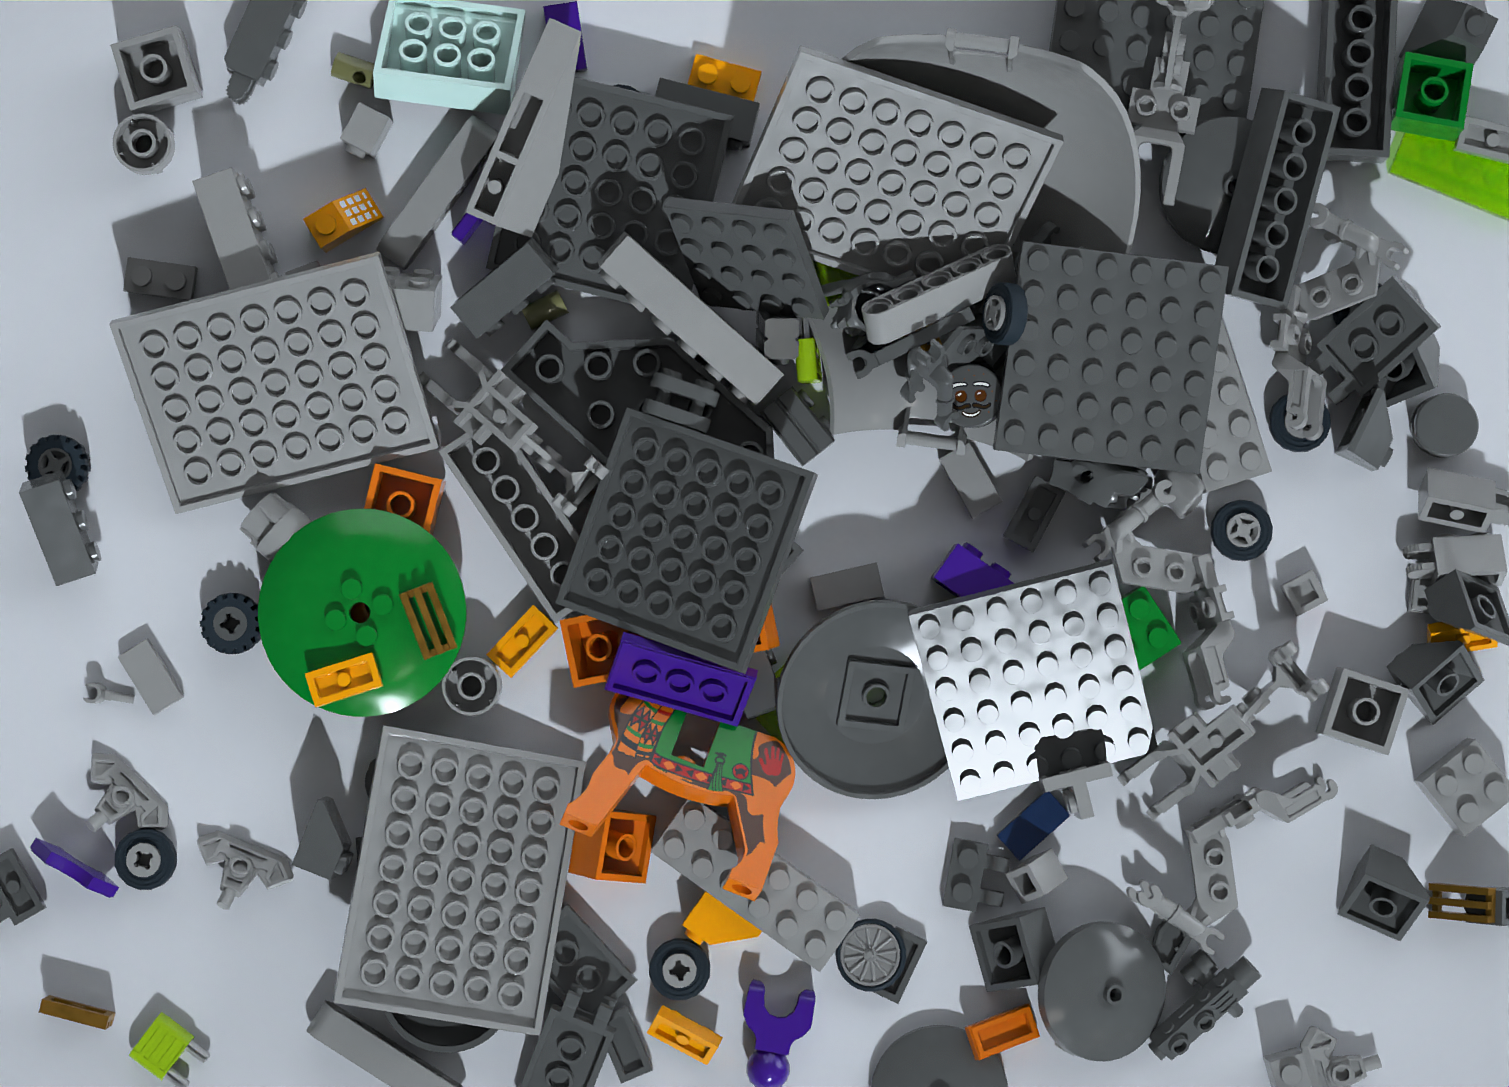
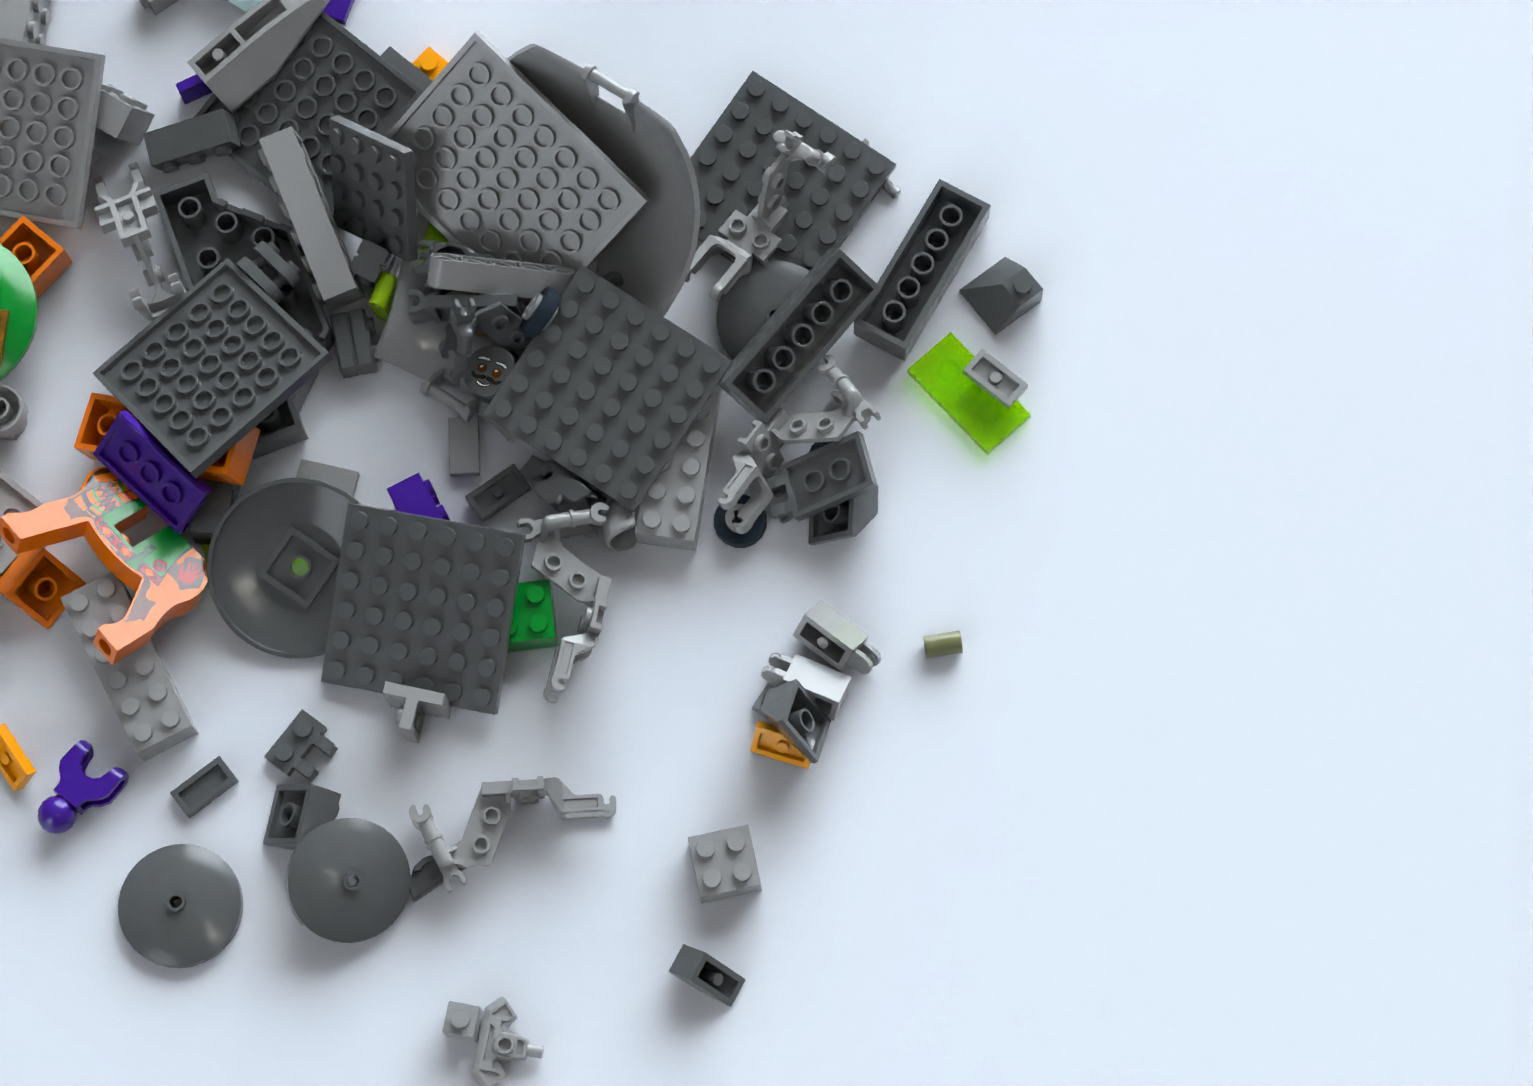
camera: 30 degrees right, 15 degrees down
(343, 219) = (106, 39): light orange slope -> none
(438, 192) = (170, 61): light grey beam -> none
(518, 513) = (106, 312): light grey brick -> none
(522, 641) = (59, 402): light orange plate -> none
(547, 307) = (219, 172): olive piece -> none
(677, 957) = (44, 712): black wheel -> none
(716, 923) = (81, 682): light orange slope -> none
(871, 955) = (187, 767): light grey wheel -> none
(1002, 1031) = (255, 877): orange tile -> none
(1033, 825) = (368, 730): dark blue tile -> none
(1036, 876) = (347, 766): light grey brick -> none
(1205, 1007) = (439, 930): dark grey piece -> none
(1207, 748) = (528, 717): light grey piece -> none
(1252, 524) = (651, 570): black wheel -> none
(1304, 593) = (675, 652): light grey plate -> none
(1362, 710) = (671, 761): light grey brick -> none
(1368, 433) = (784, 551): dark grey slope -> none
(1384, 894) = (613, 917): dark grey slope -> none
(1431, 96) = (961, 321): green brick -> none
(1436, 675) = (746, 766): dark grey slope -> none
(1437, 902) = (659, 946): pearl gold tile -> none
(1444, 425) = (852, 577): dark grey head -> none

